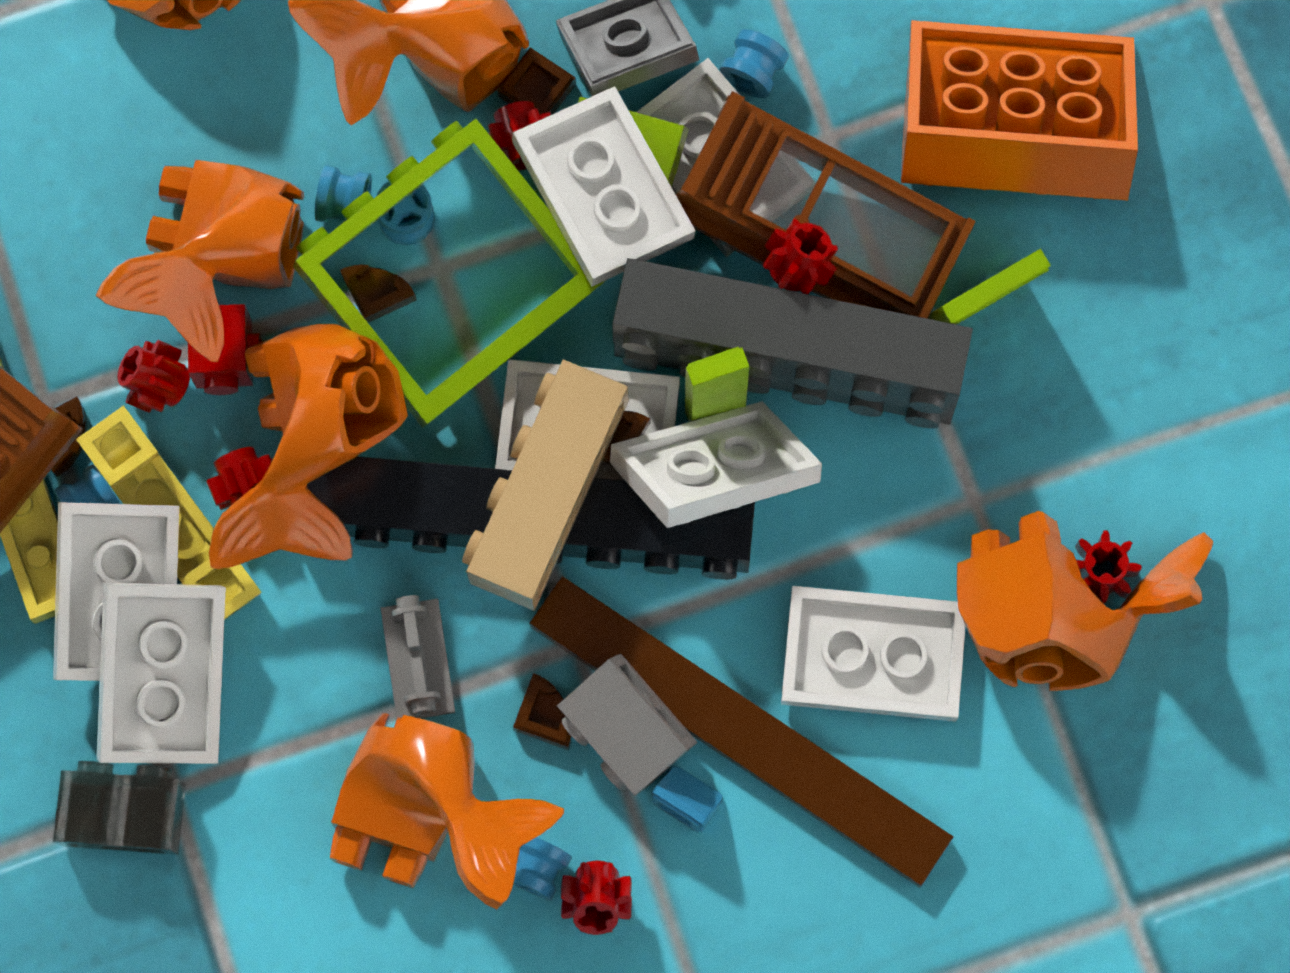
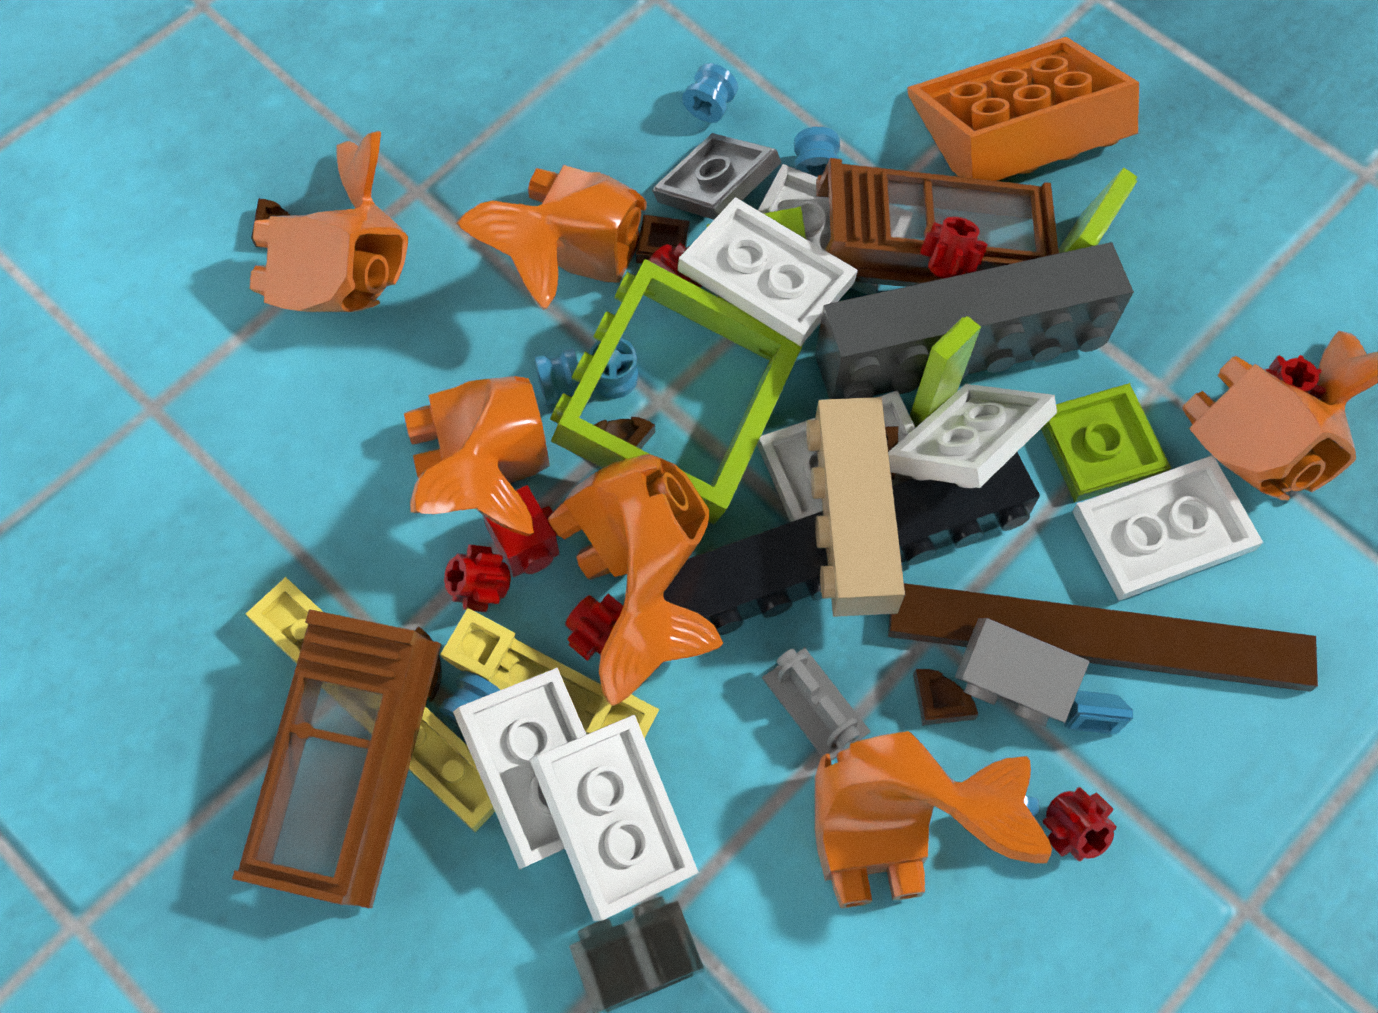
camera: 30 degrees left, 10 degrees down
(870, 532) = (1103, 442): none -> lime tile

